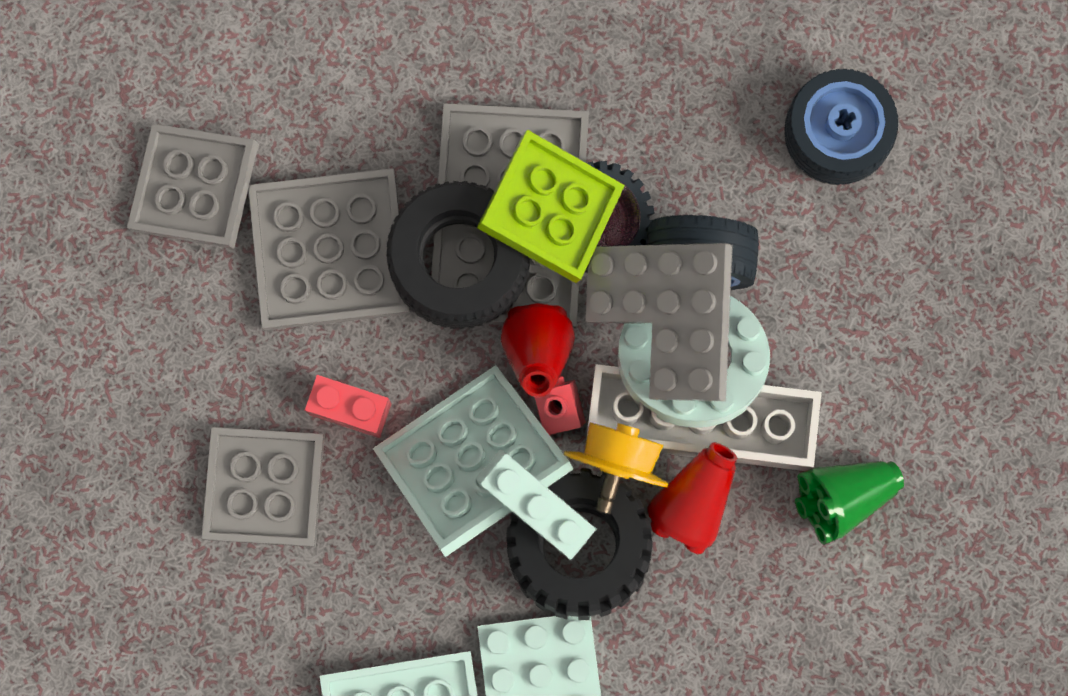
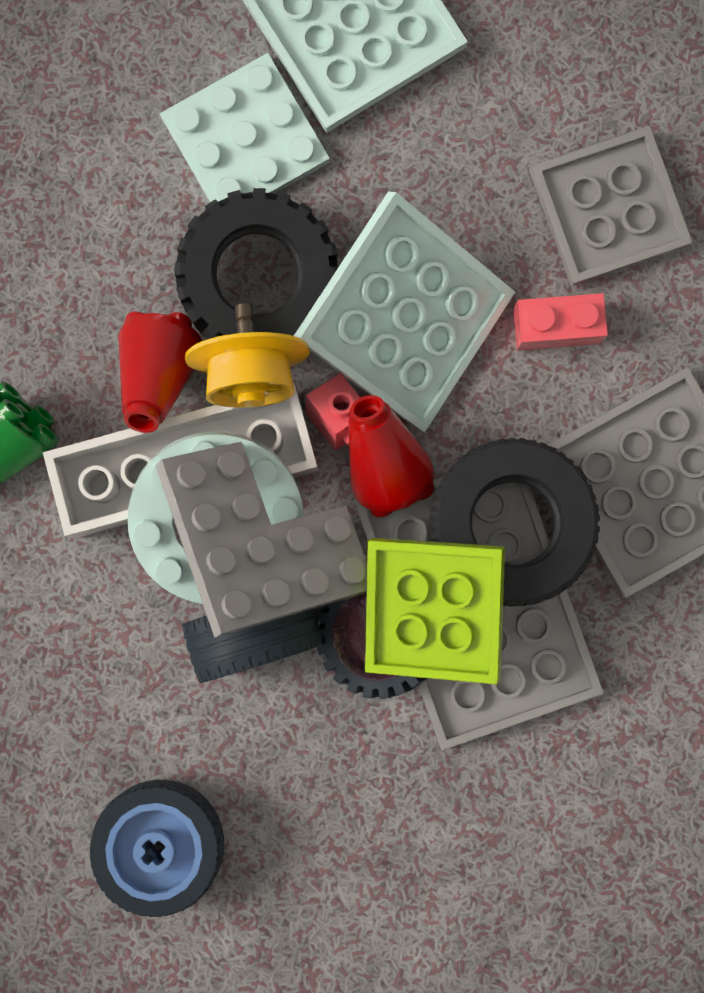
camera: 160 degrees right, 5 degrees up
(535, 504) = (315, 273): light aqua brick -> none

